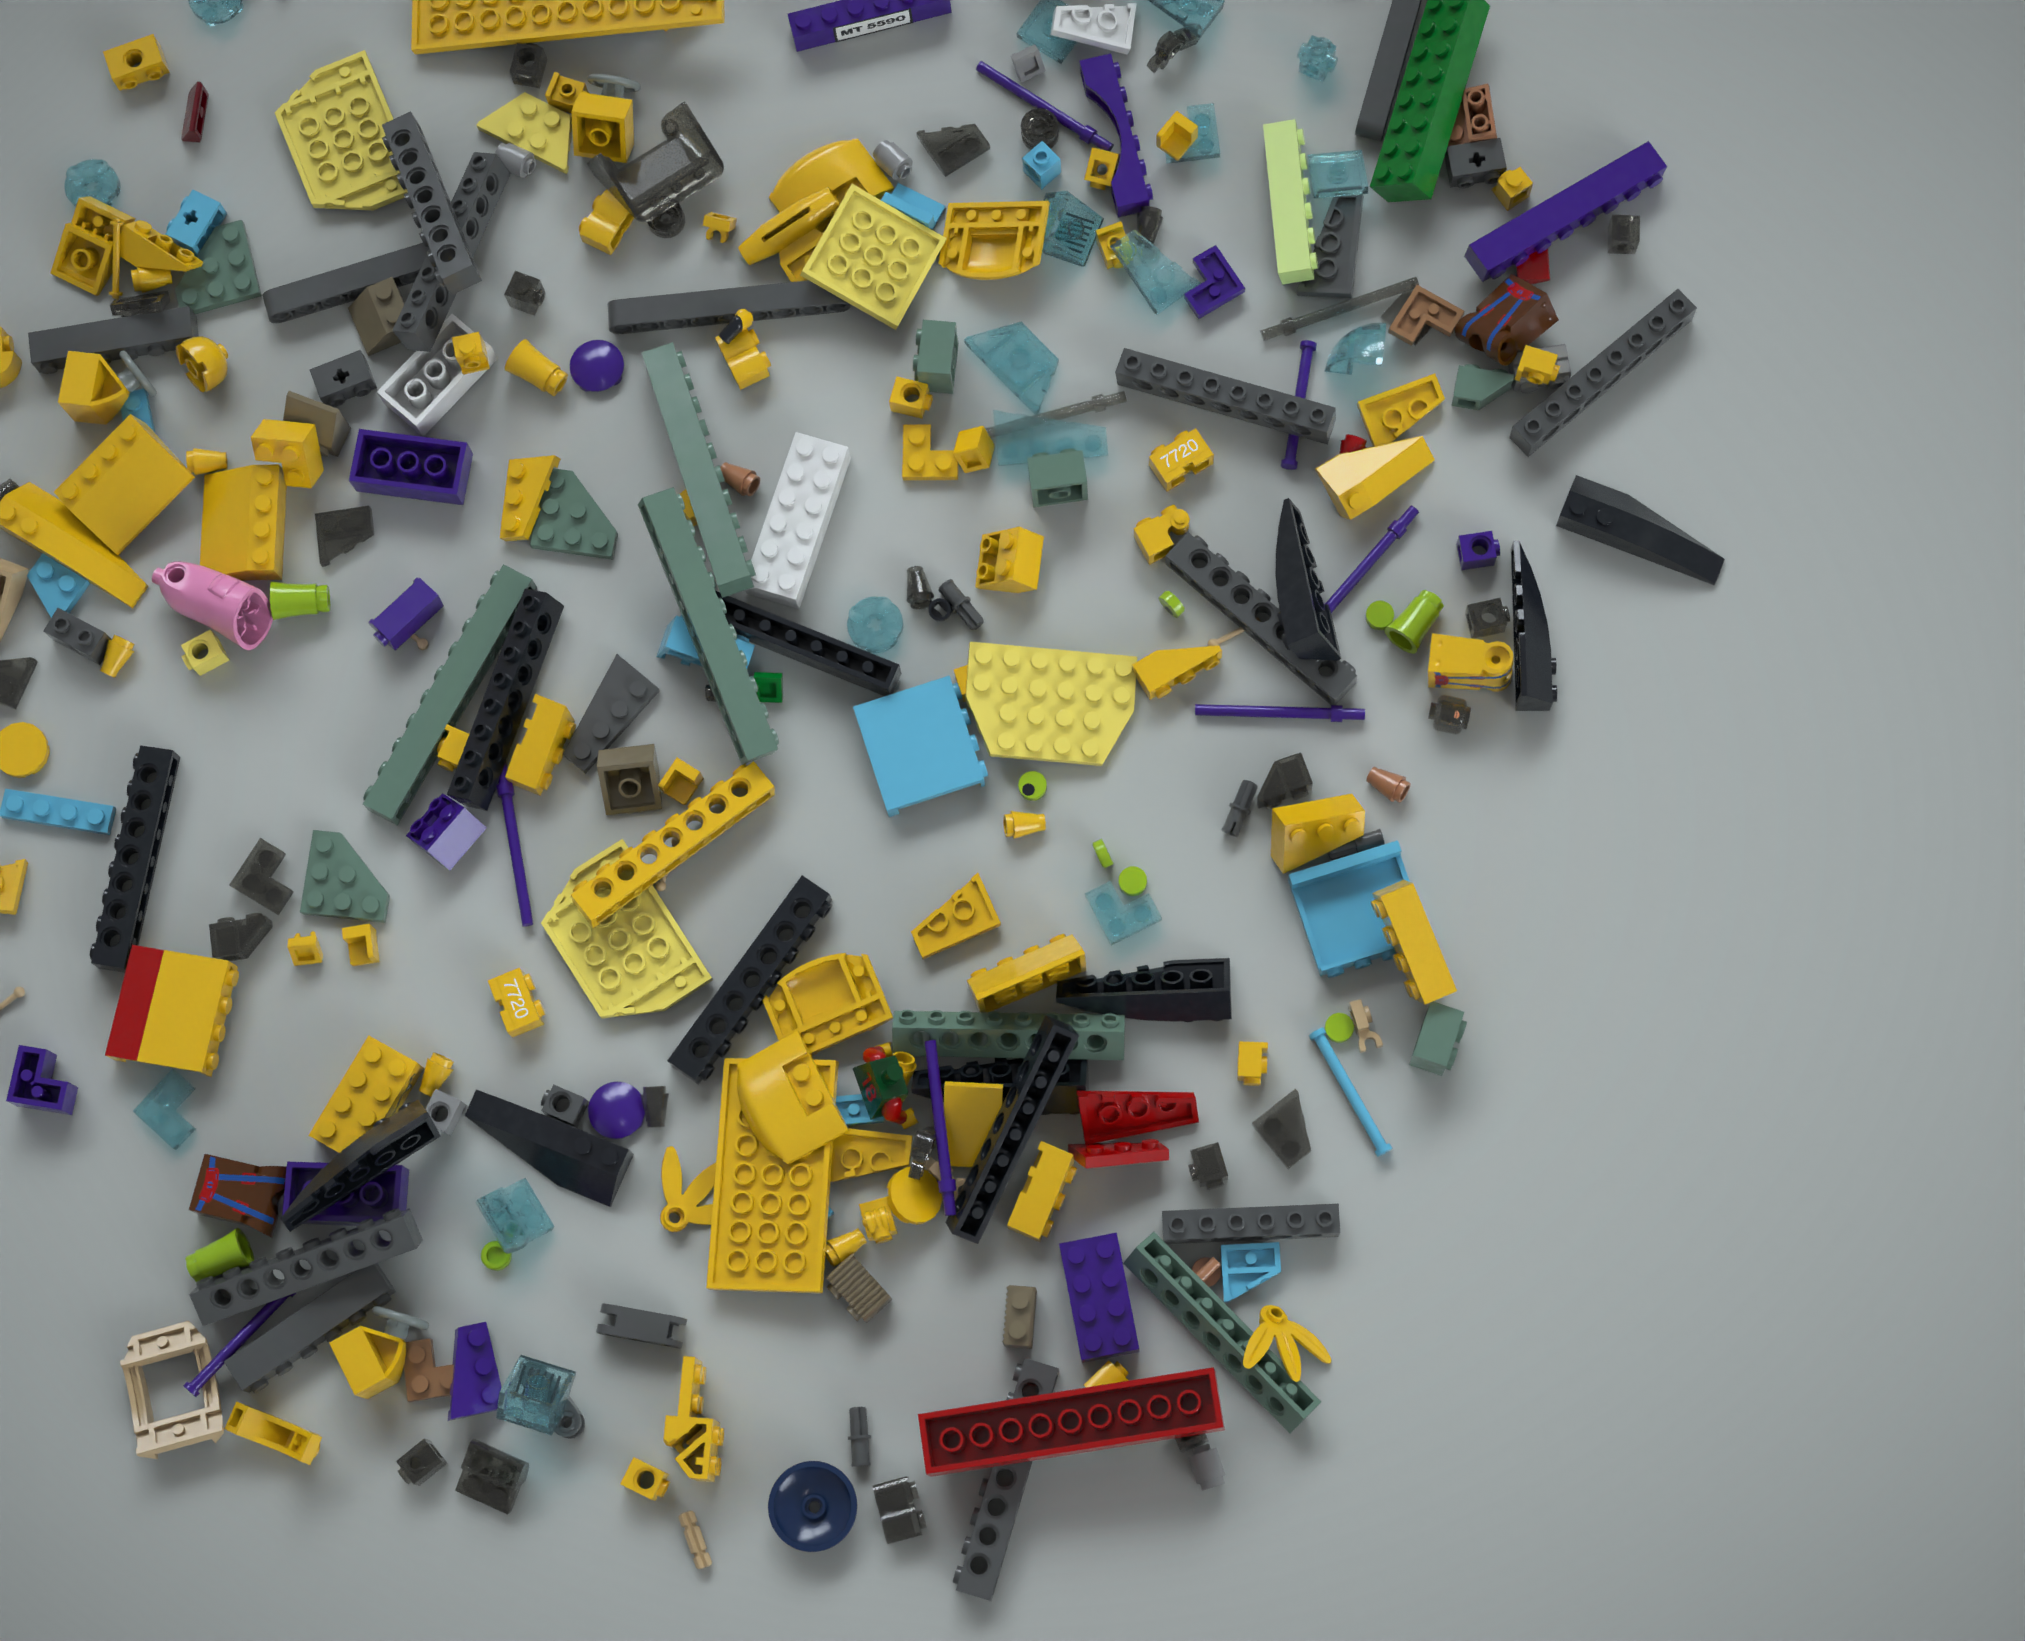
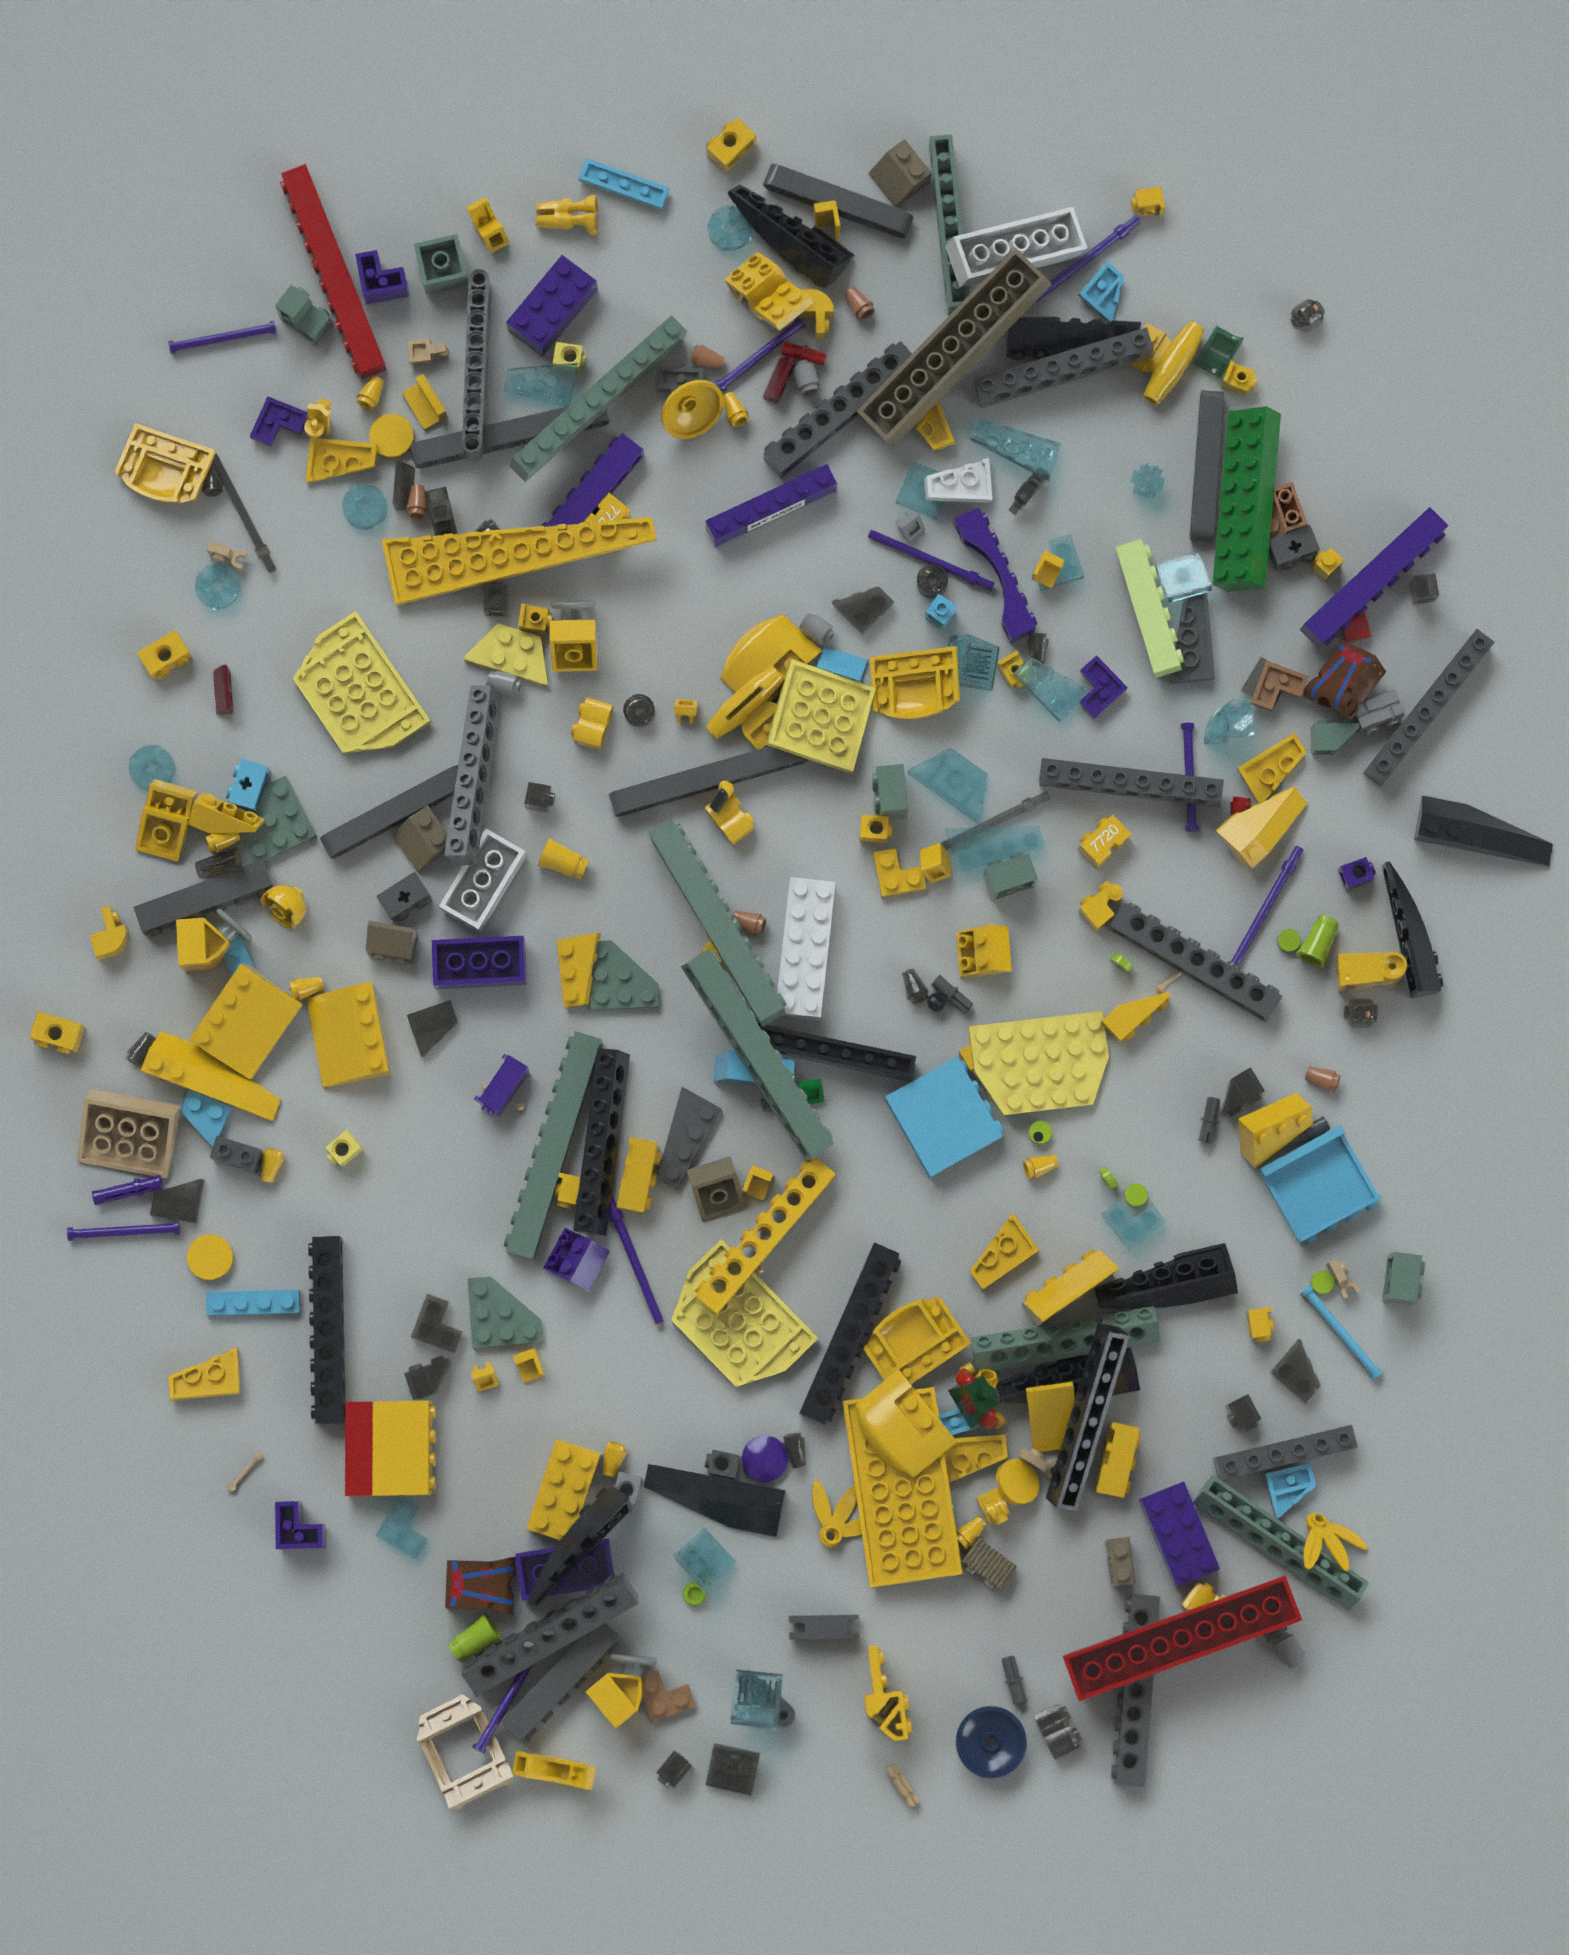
camera: 20 degrees left, 5 degrees up
(115, 293) = (194, 856): yellow axle -> none
(216, 601) = (345, 1106): bright pink torso -> none
(293, 446) = (379, 965): yellow brick -> none
(298, 599) = (411, 1090): lime plant -> none
(431, 204) = (494, 797): dark grey brick -> none
(471, 353) = (512, 861): yellow brick -> none
(475, 1373) = (701, 1691): dark purple wing -> none
(521, 1009) = (666, 1385): yellow brick -> none
(597, 366) = (610, 847): dark purple dish -> none
(633, 1475) = (846, 1739): yellow brick -> none
(665, 172) = (632, 673): clear smoke windscreen -> none
(861, 616) = (898, 1026): clear light blue plate -> none
(921, 1151) = (1018, 1445): clear smoke bar -> none
(946, 1184) = (1044, 1469): dark purple bar -> none
(1097, 158) = (995, 614): yellow brick -> none
(1118, 1153) = (1170, 1418): red wing -> none
(1130, 1113) = (1171, 1384): red wing -> none
(1207, 1270) = (1258, 1494): nougat plate -> none
(1289, 326) = (1169, 712): clear smoke bar -> none
(1302, 611) = (1229, 950): black wedge -> none
(1335, 713) = (1269, 1028): dark purple bar -> none
(1413, 941) = (1372, 1207): yellow brick -> none
(1481, 628) = (1366, 932): clear smoke brick -> none
(1537, 366) = (1377, 715): yellow brick -> none

